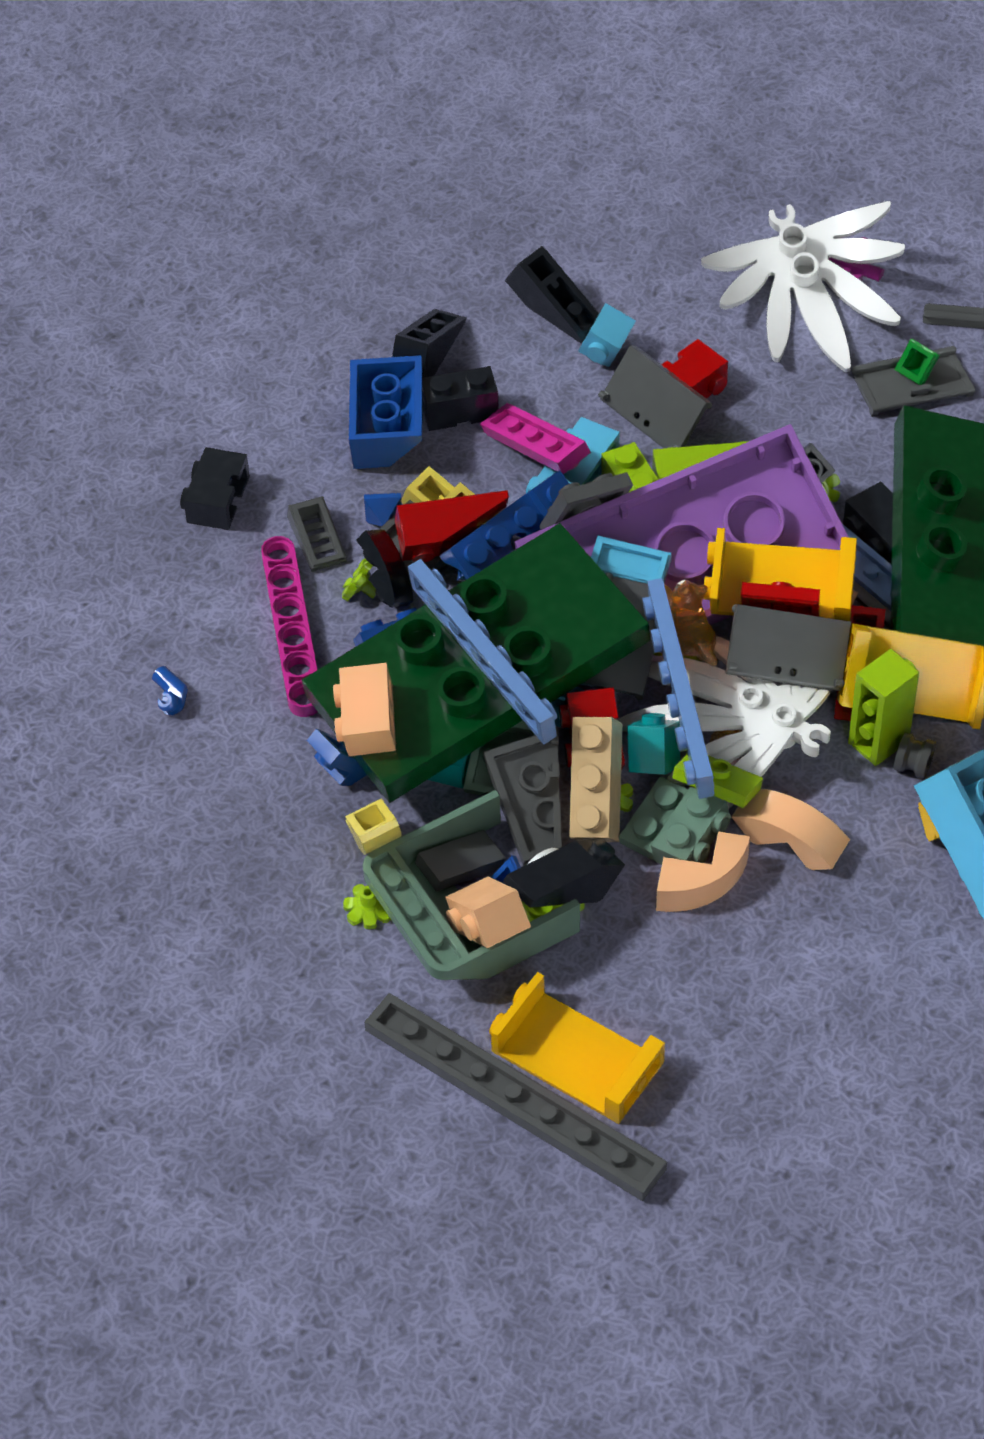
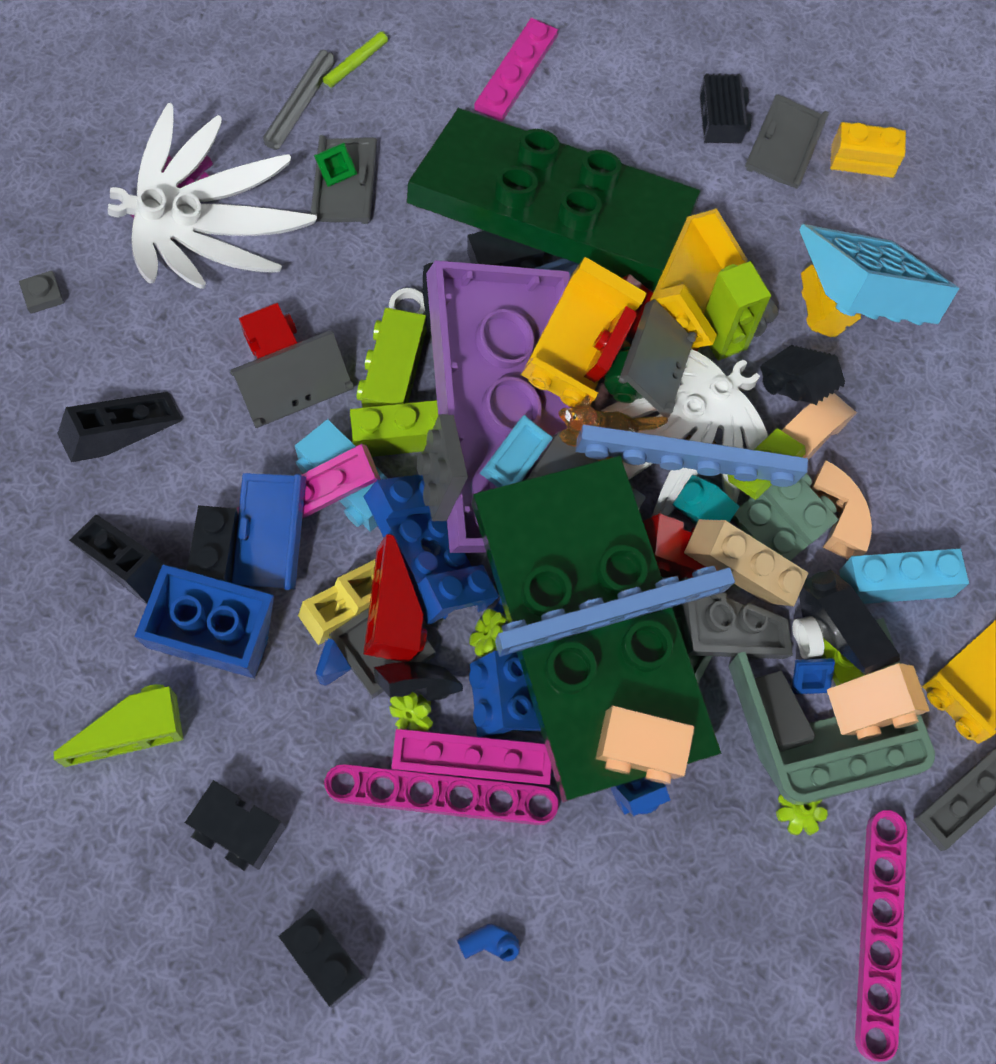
camera: 80 degrees left, 15 degrees up
(123, 574) = (322, 958): none -> black brick
(268, 982) = (889, 933): none -> dark pink beam
(278, 394) = (130, 726): none -> lime slope
(310, 510) = (332, 752): dark grey slope -> none
(328, 615) = (471, 756): none -> dark pink plate
(373, 826) = (763, 778): light yellow slope -> none
(489, 425) = (274, 532): none -> blue door
(607, 335) = (191, 394): medium azure brick -> none
(647, 938) = (906, 575): none -> medium azure brick
(671, 208) = (41, 292): none -> dark grey plate
(843, 794) = (802, 374): none -> black brick

